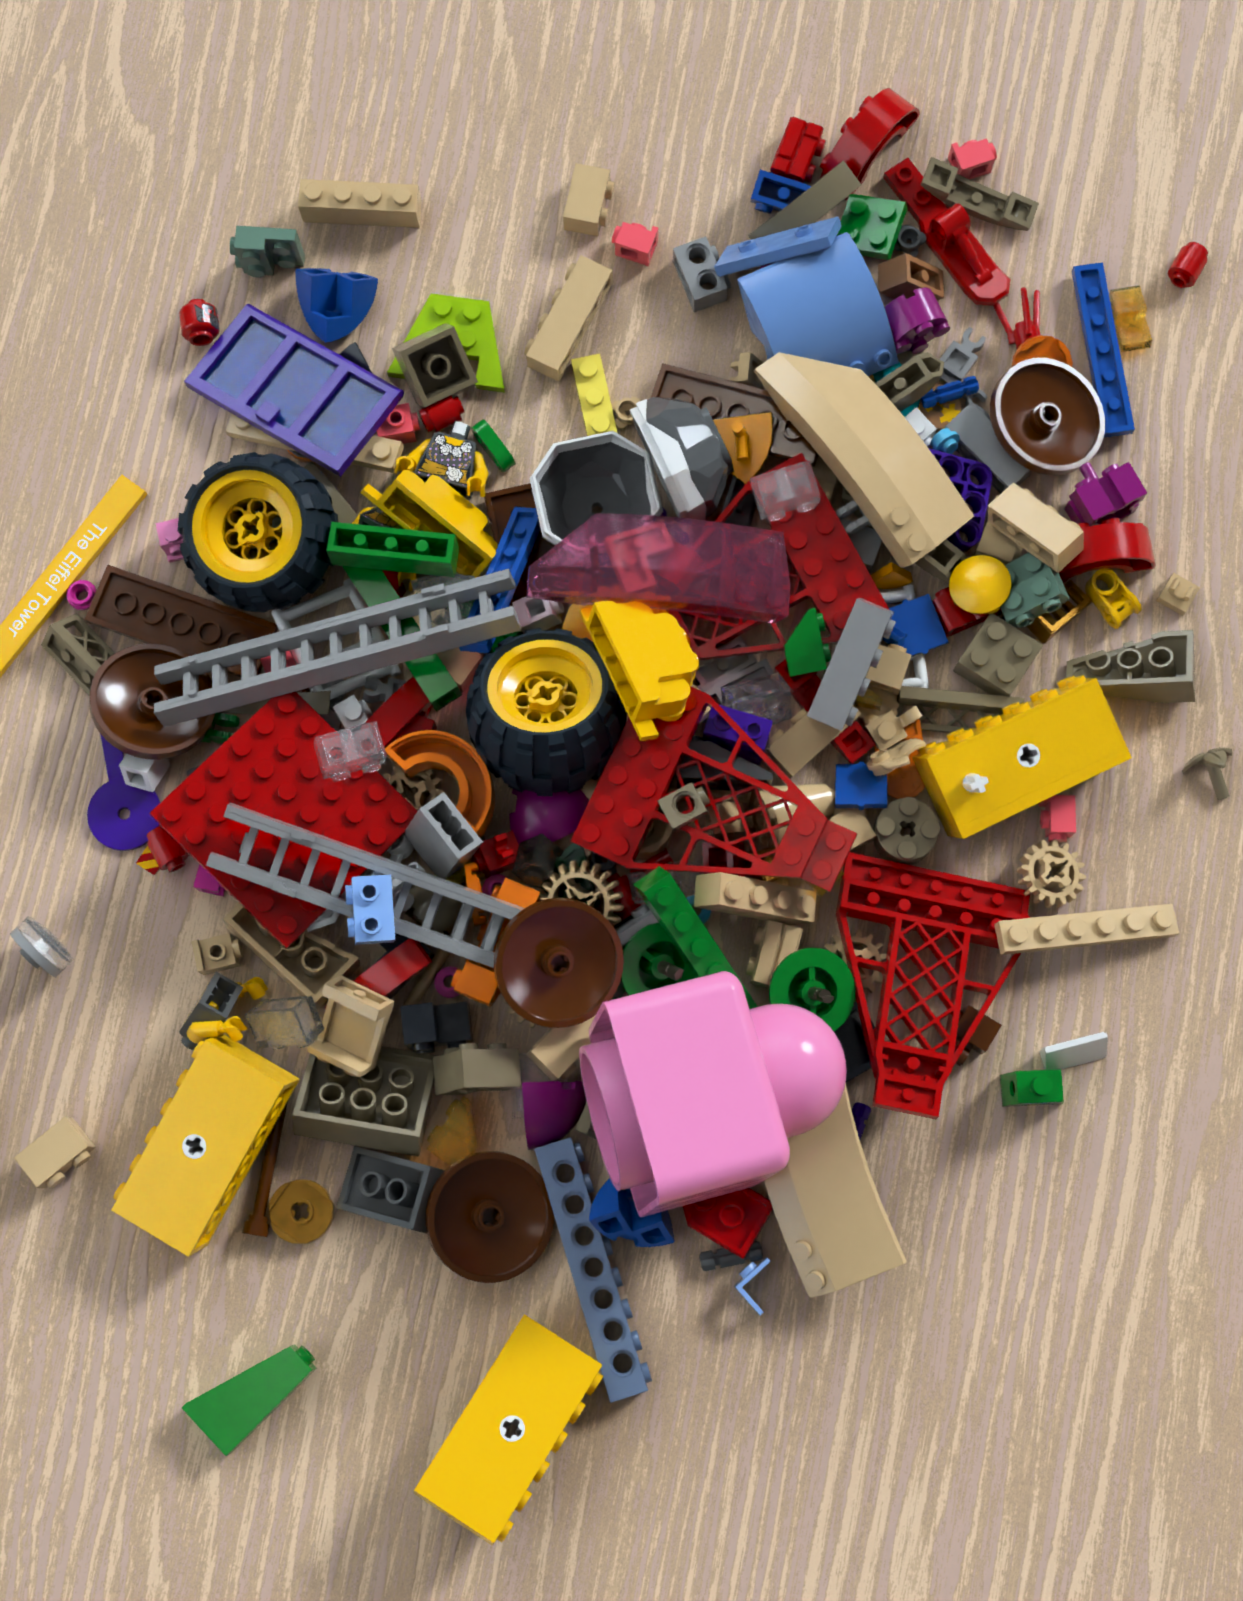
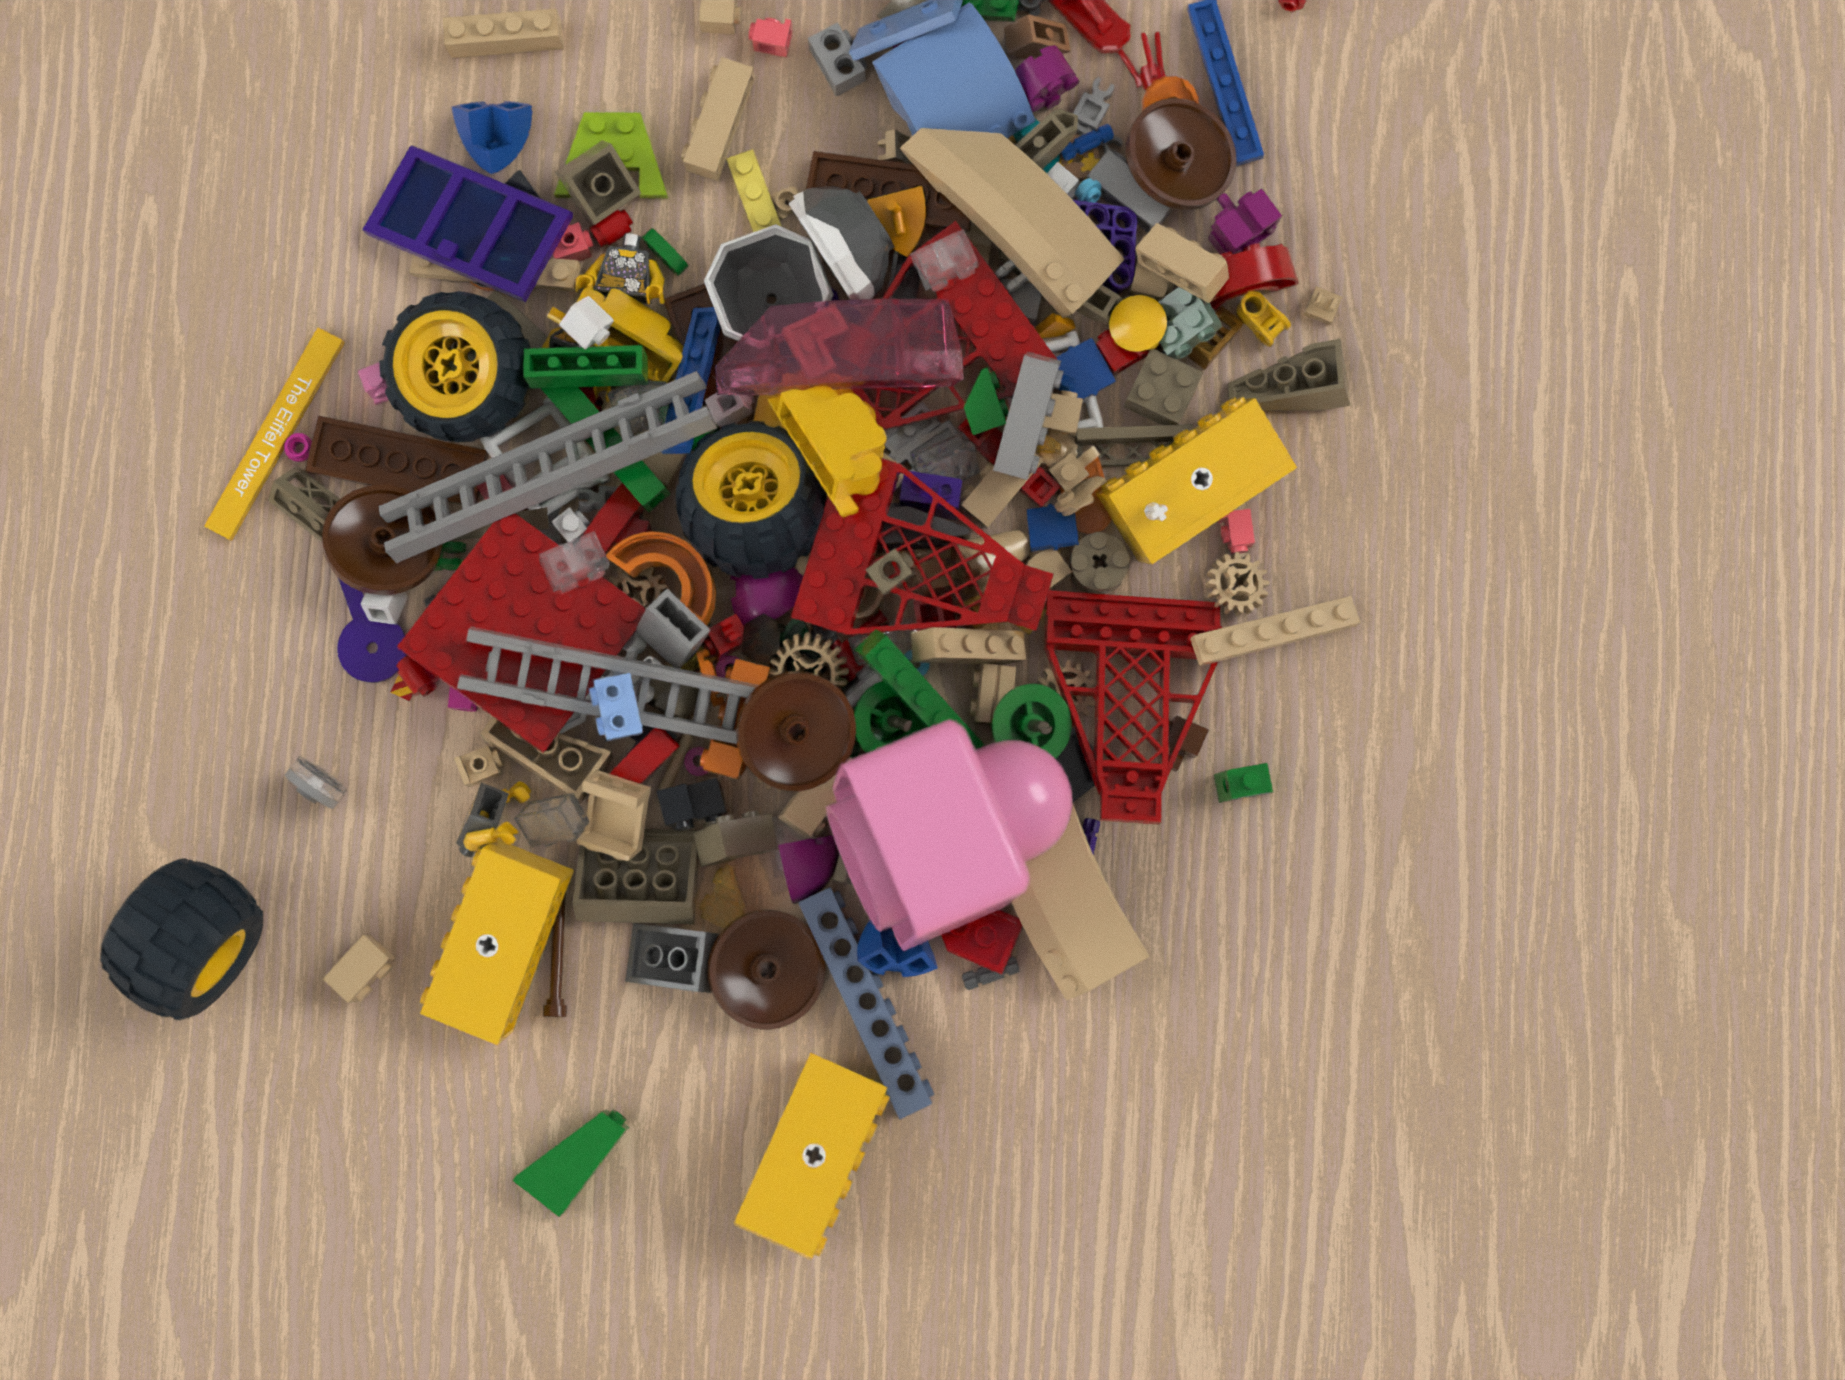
camera: 10 degrees left, 5 degrees up
(199, 322) = (367, 170): red head -> none
(262, 248) = (416, 90): sand green plate -> none
(283, 1215) = (577, 994): pearl gold plate -> none
(401, 503) = (587, 323): none -> white brick
(747, 1274) = (1007, 987): light blue bracket -> none
(1075, 1052) = (1278, 744): white slope -> none
(1129, 318) = (1247, 47): clear yellow slope -> none
(1214, 761) = (1374, 458): dark tan plant -> none

